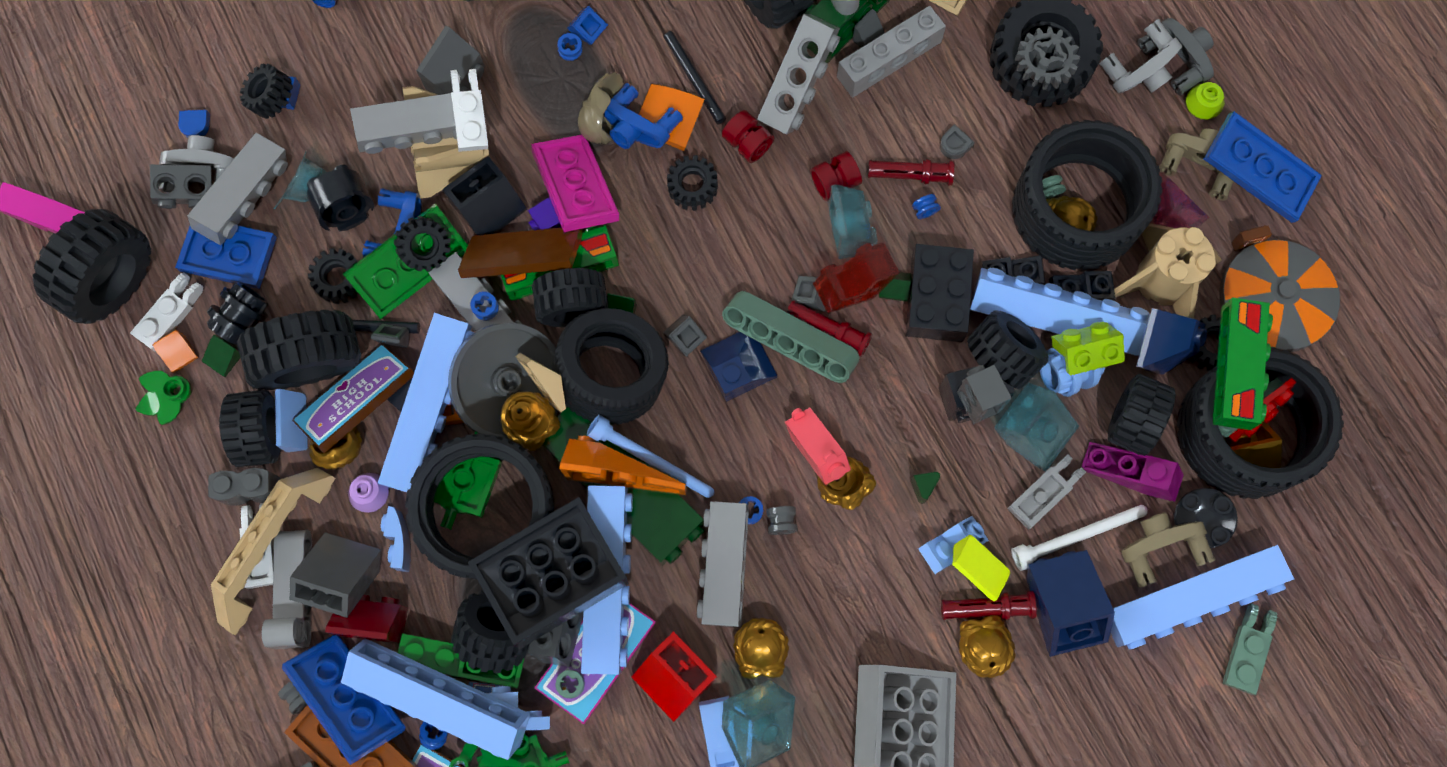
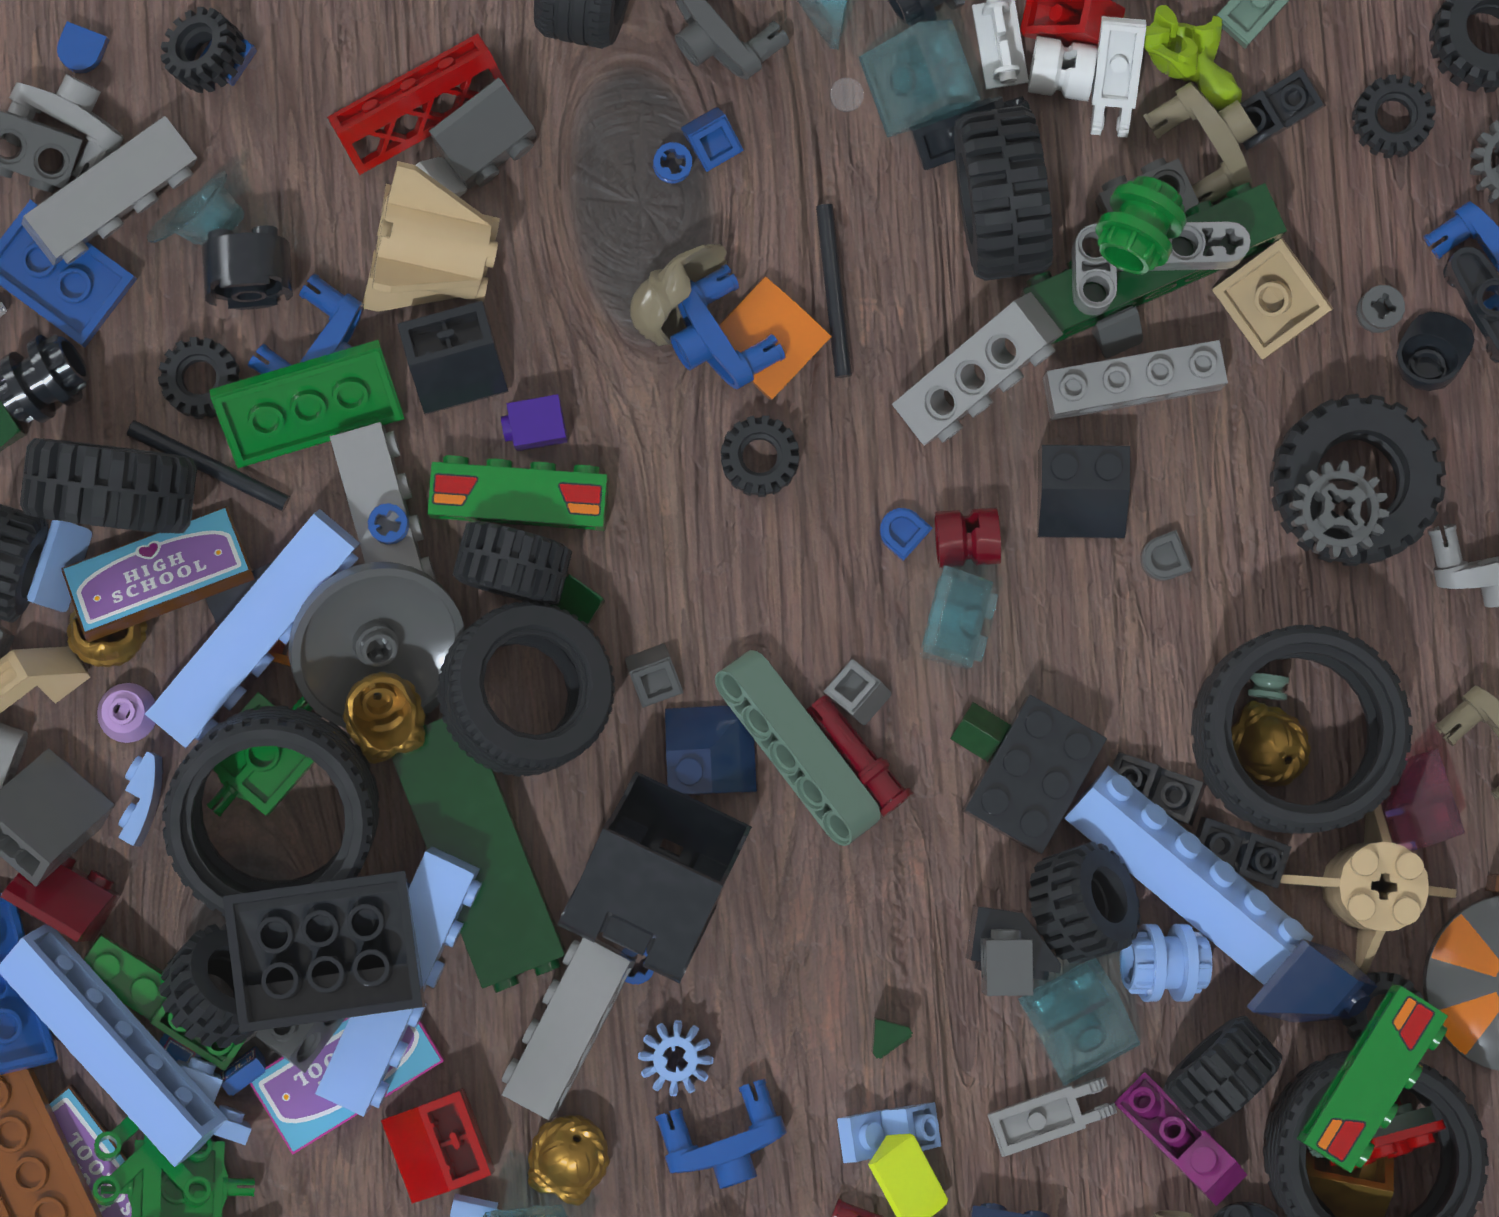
camera: 20 degrees right, 10 degrees up
(391, 335) = (243, 503): dark grey slope -> none
(399, 66) = (405, 96): none -> red fence
(403, 123) = (393, 224): light grey brick -> none
(416, 227) = (336, 417): black tyre -> none
(429, 743) = (79, 1091): blue bush -> none
(468, 114) = (474, 251): white hinge -> none
(520, 252) = (470, 467): reddish brown tile -> none
(529, 683) = (243, 1071): none -> blue tile
(546, 381) = (429, 672): tan slope -> none
(573, 675) = (305, 1086): sand green bush -> none
(574, 183) = (589, 390): dark pink tile -> none
(599, 464) = (456, 824): orange wedge -> none
(602, 430) = (476, 778): light blue piece -> none
(739, 442) = (647, 892): none -> black piece
(745, 133) = (868, 422): dark red wheel -> none
(782, 520) = (671, 999): dark grey wheel -> none
(796, 191) = (903, 531): none -> blue tile
(809, 550) = (690, 1055): none -> light blue gear
(817, 445) = (763, 921): coral brick -> none
(850, 487) = (788, 993): pearl gold hair -> none
(857, 278) = (930, 707): clear red brick -> none
(861, 602) = (730, 1156): none -> blue connector
(890, 123) = (1083, 491): none -> black slope
(925, 171) = (1100, 584): dark red pin -> none
(926, 206) = (1076, 637): blue bush -> none
(1026, 555) = (982, 1190): white piece -> none
(1090, 347) = (1194, 952): lime bracket -> none

